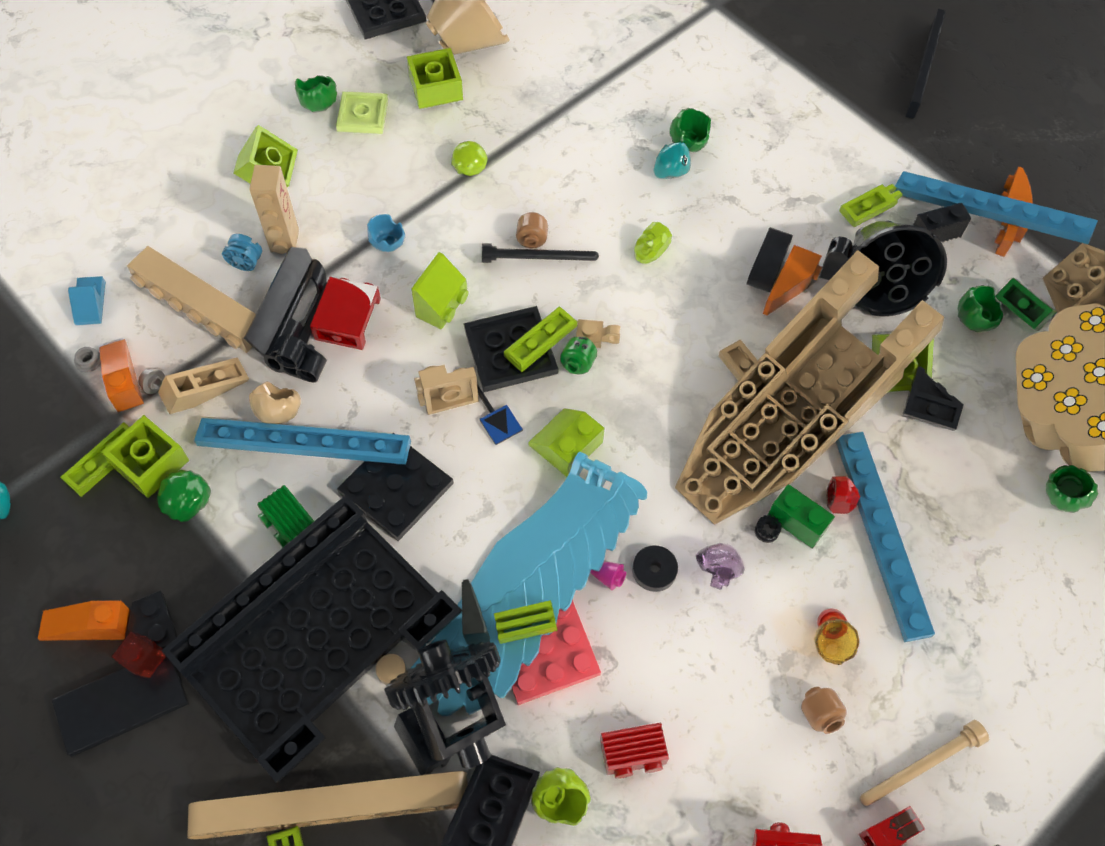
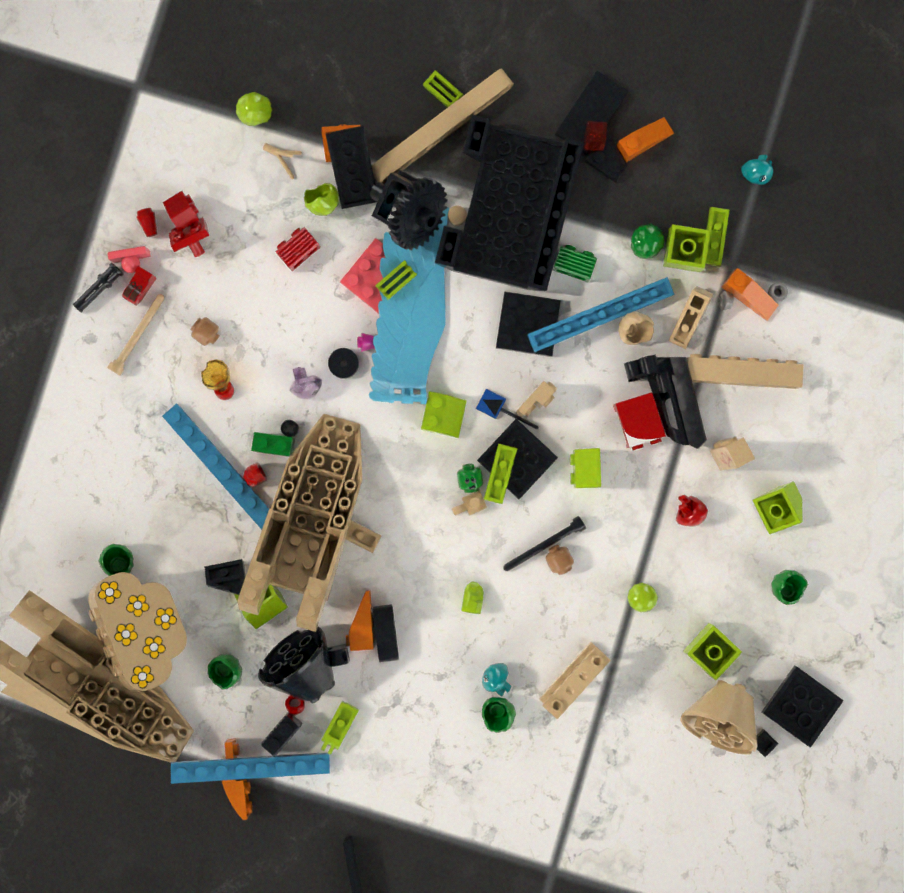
camera: 150 degrees right, 25 degrees up
(87, 300) = (812, 331): dark azure slope -> none
(242, 251) = (738, 425): dark azure wheel -> none
(359, 200) = (691, 512): none -> red piece
(362, 112) = (747, 595): yellowish green tile -> none
(385, 233) = (655, 496): dark azure hair -> none
(473, 623) = (427, 265): pearl dark grey slope -> none
(593, 130) = (574, 680): none -> tan fence
(1025, 304) = (196, 693): green brick -> none

